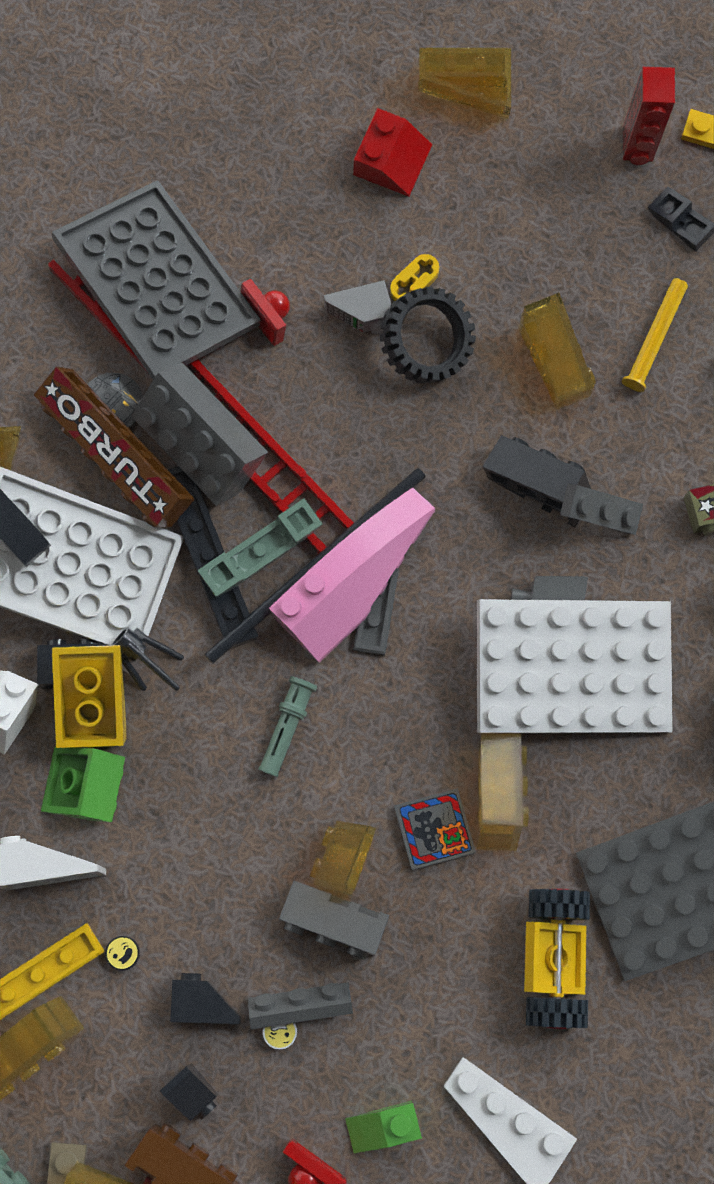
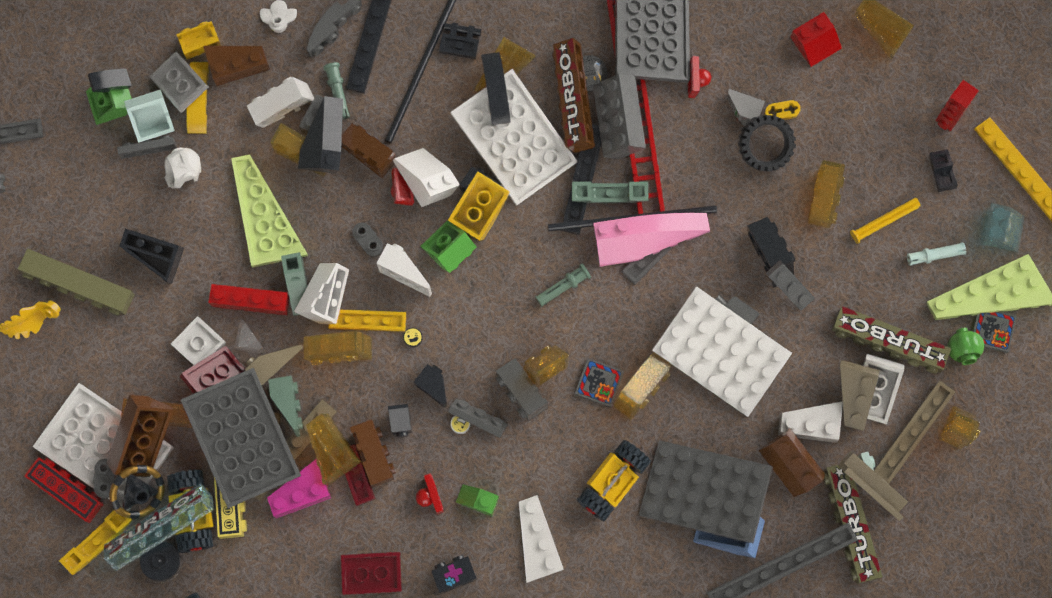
camera: 40 degrees right, 0 degrees up
(132, 648) = (515, 197): black plant -> none

